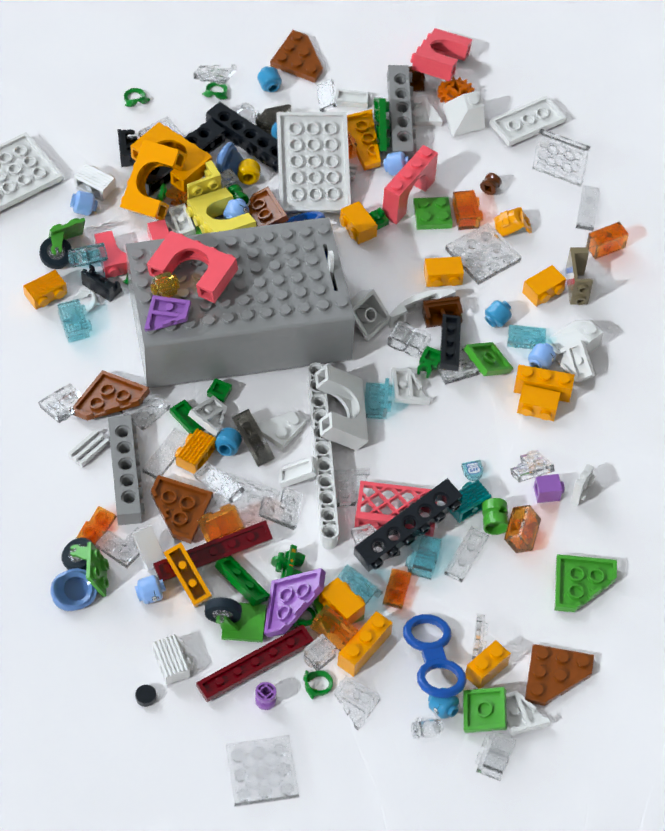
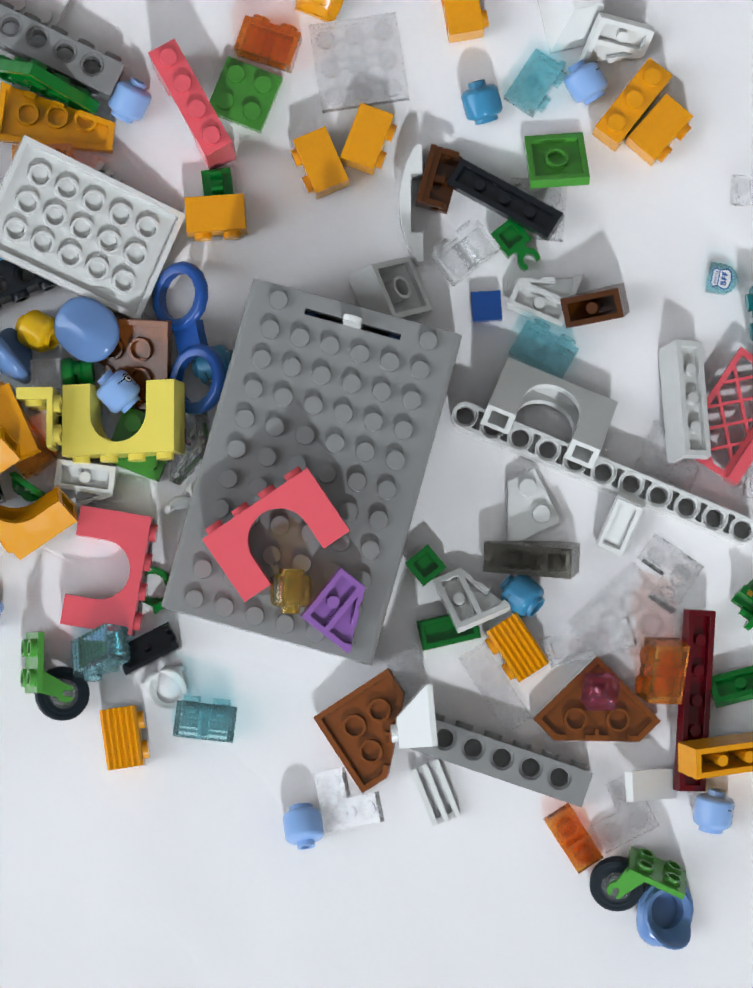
camera: 60 degrees left, 30 degrees up
(36, 388) = (303, 825): none -> light blue head
(127, 405) = (416, 721): none -> white slope
(191, 498) = (600, 691): none -> clear pink slope
(261, 185) = (86, 329): none -> medium blue piece
(385, 363) = (486, 306): none -> blue tile
(390, 473) = (684, 401): none -> white panel
(413, 257) = (320, 163): none -> light orange brick
(418, 409) = (595, 305): none -> reddish brown slope

